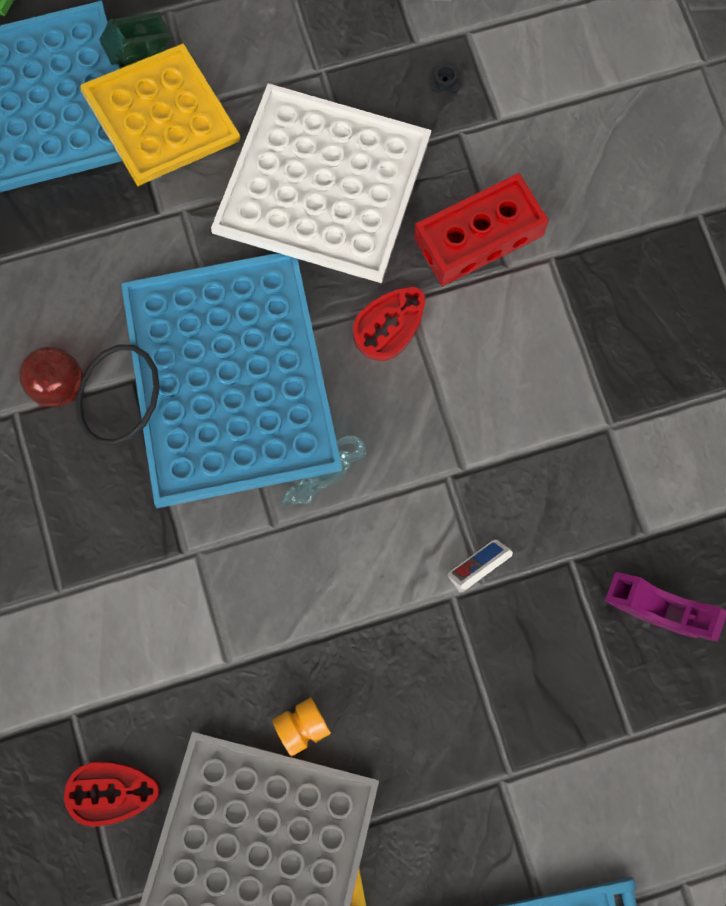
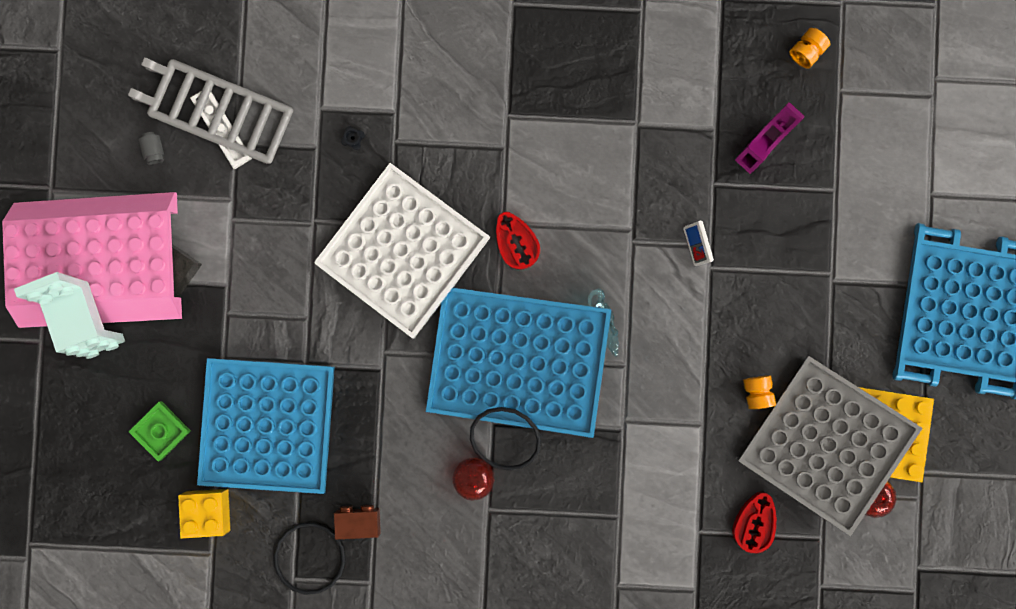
camera: 70 degrees left, 10 degrees up
(134, 38) = (250, 344): clear green brick -> none
(160, 114) = (311, 345): yellow plate -> none
(482, 229) = (461, 128): red brick -> none

